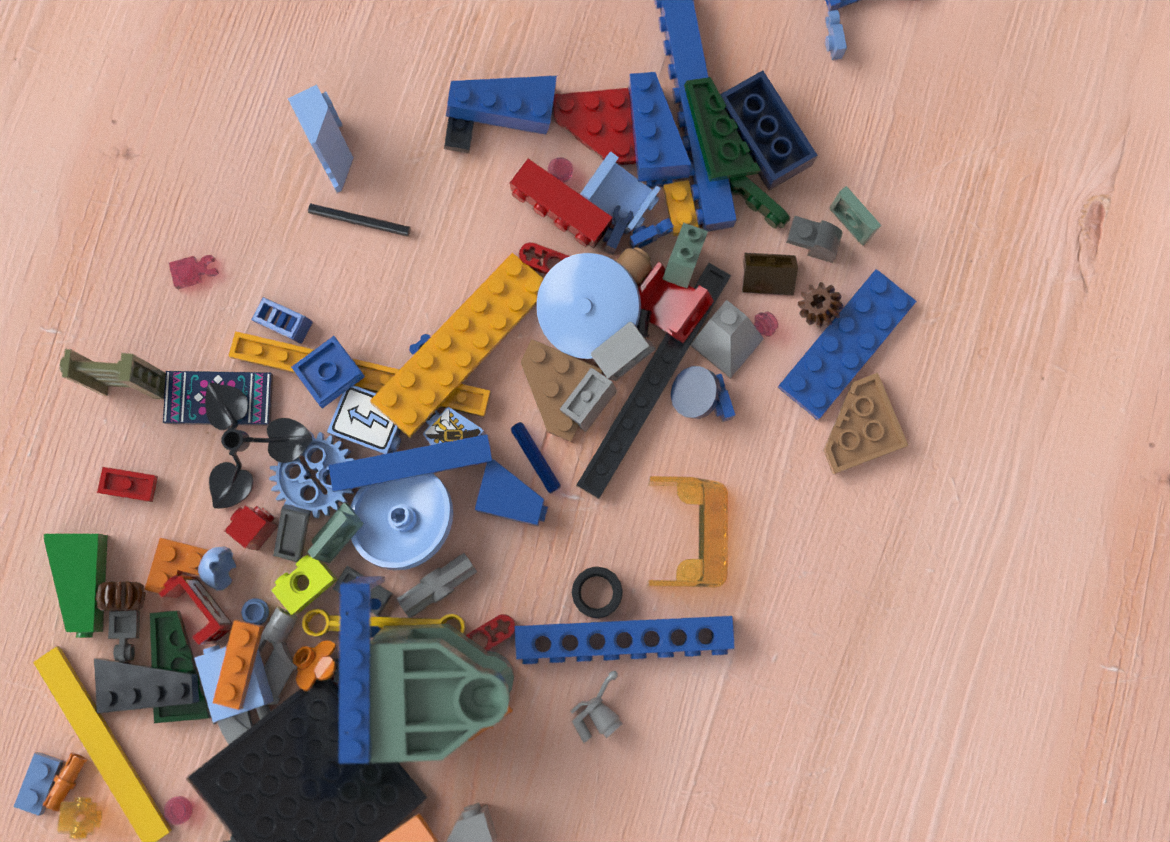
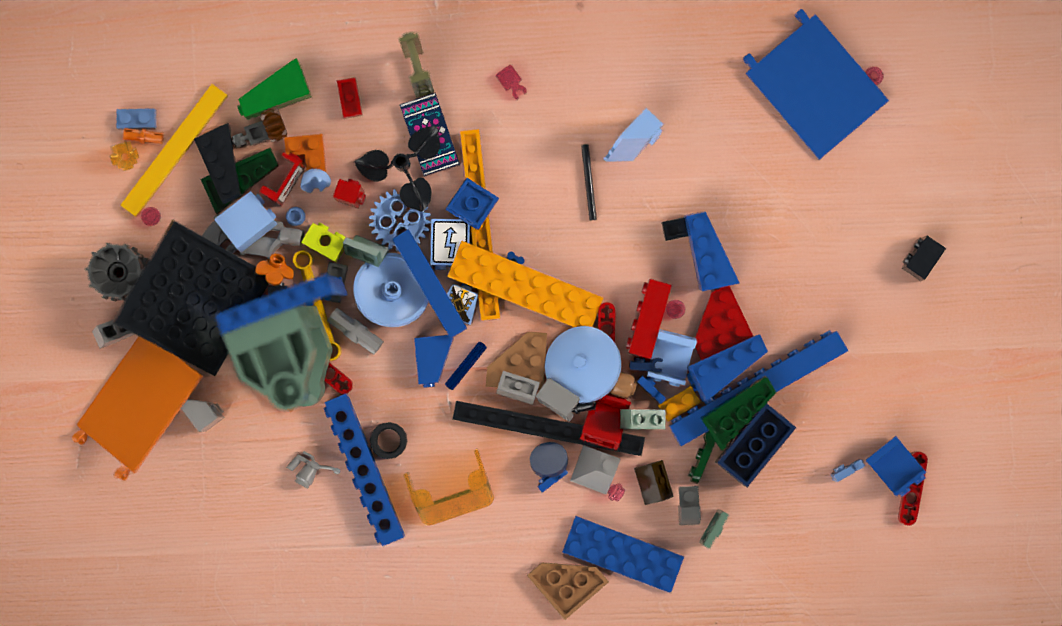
camera: 70 degrees right, 5 degrees up
(238, 664) = (256, 221): orange plate -> none
(291, 533) = (355, 221): dark grey tile -> none
(296, 328) = (501, 170): blue slope -> none
(810, 307) = (651, 525): reddish brown gear -> none

